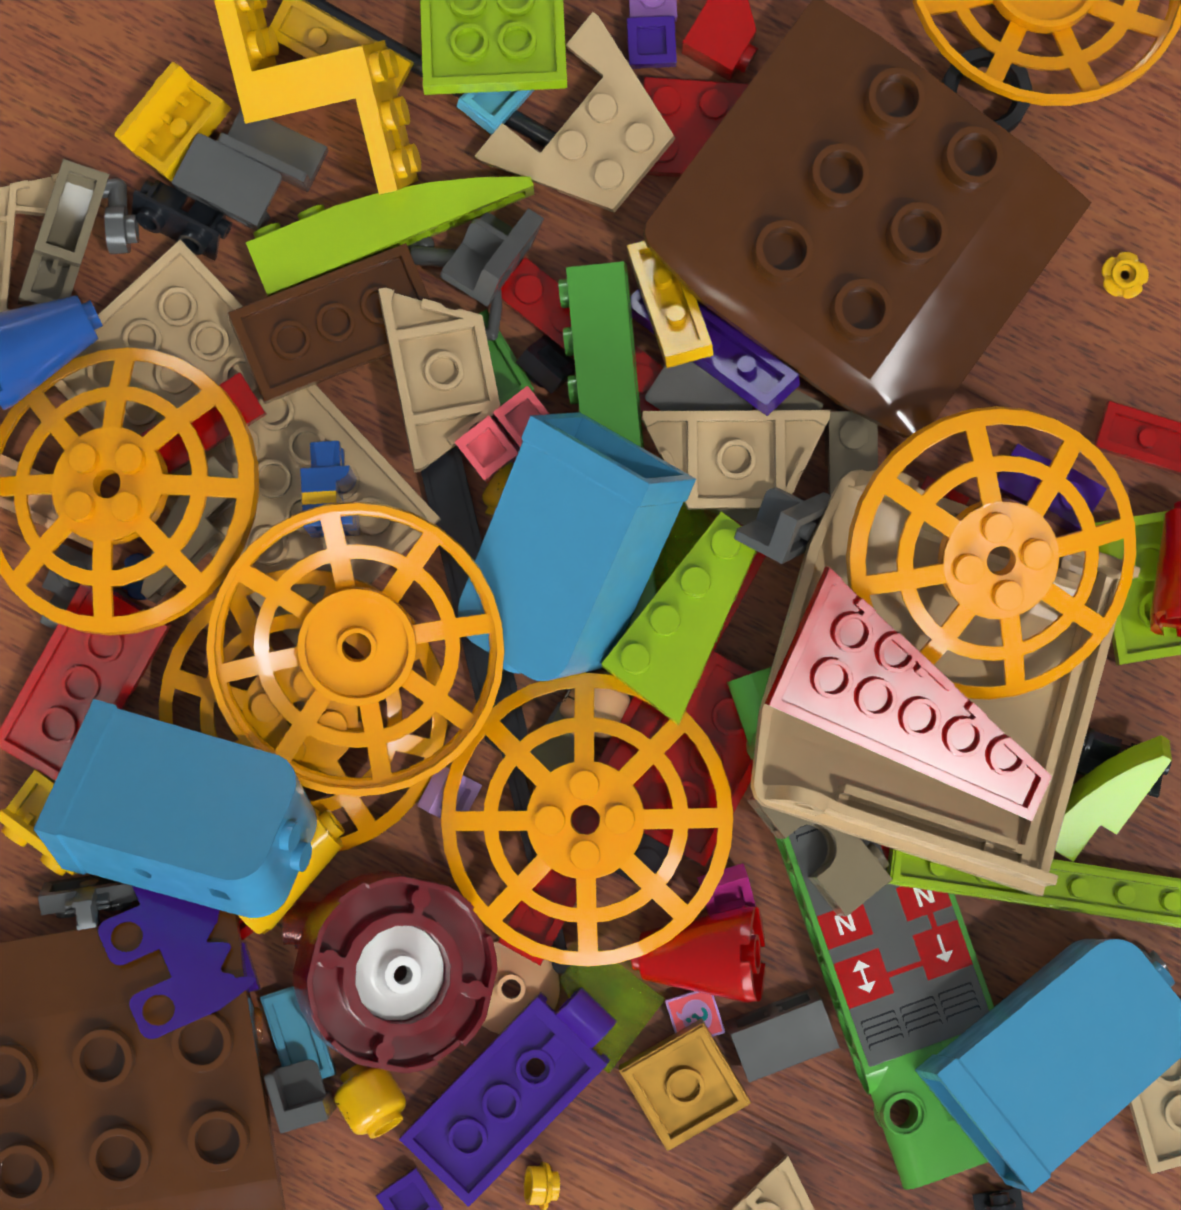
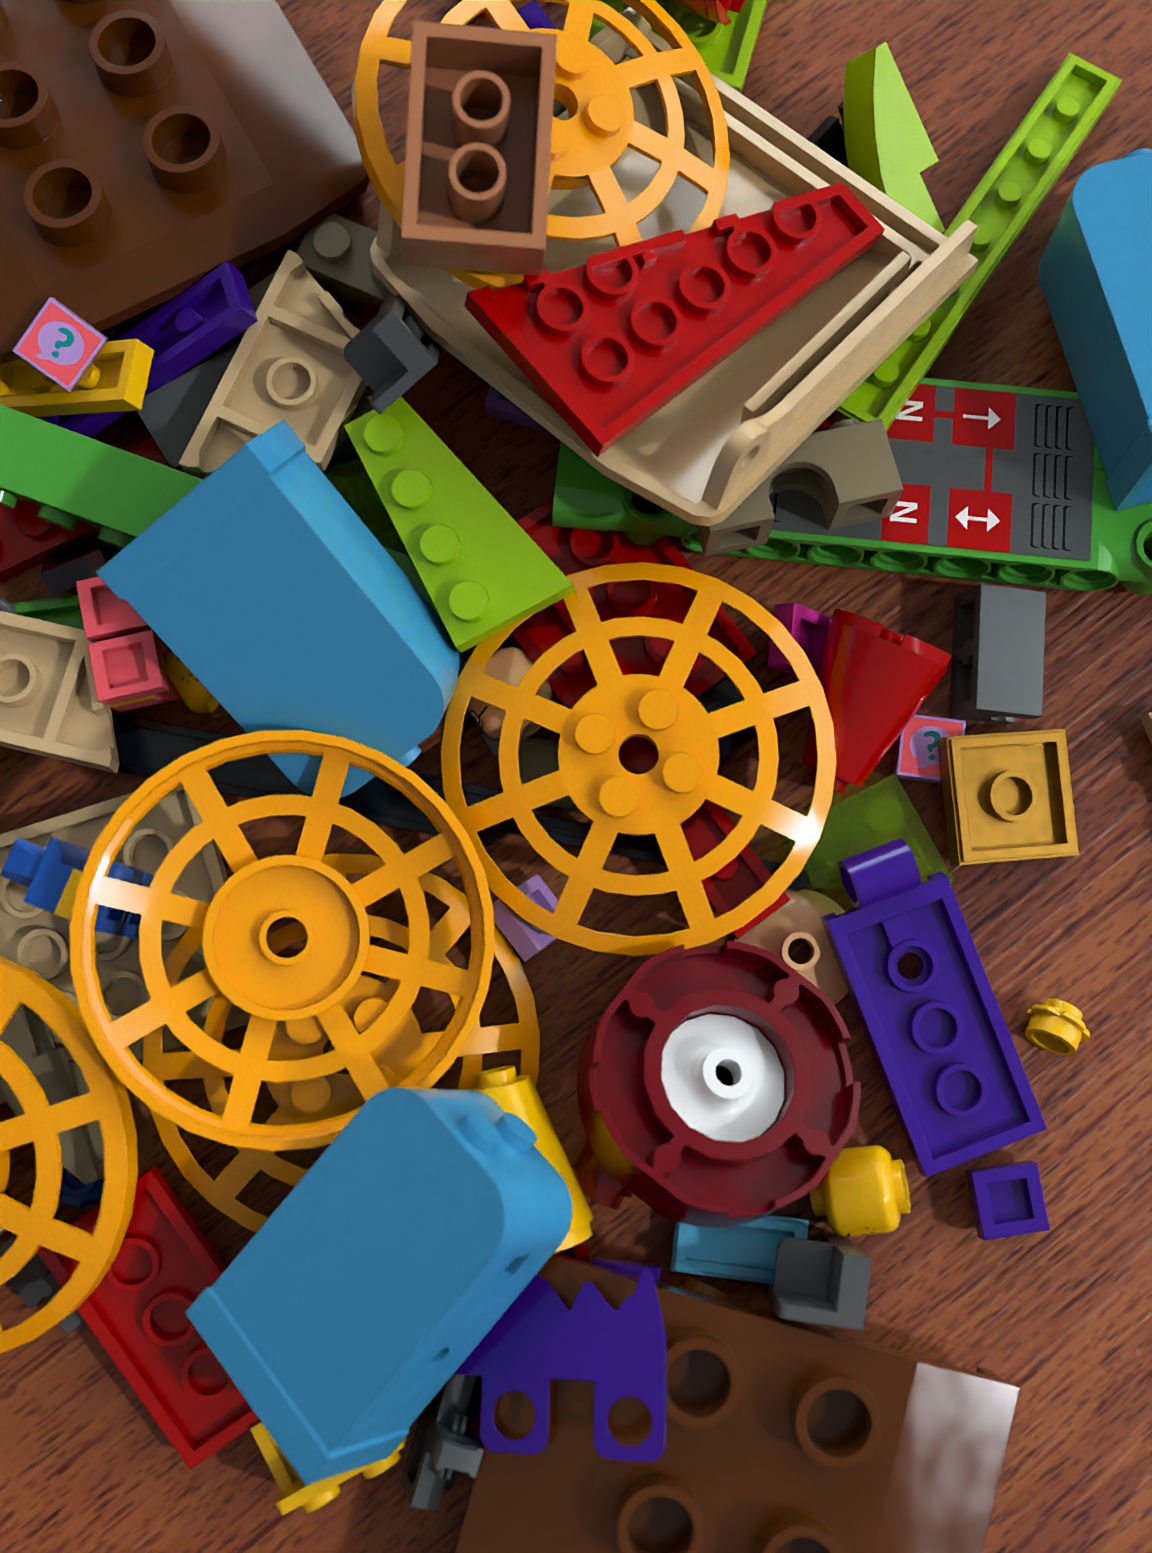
camera: 60 degrees left, 5 degrees down
(684, 294) = (60, 344): none -> tile
(919, 536) = (478, 148): none -> nougat brick

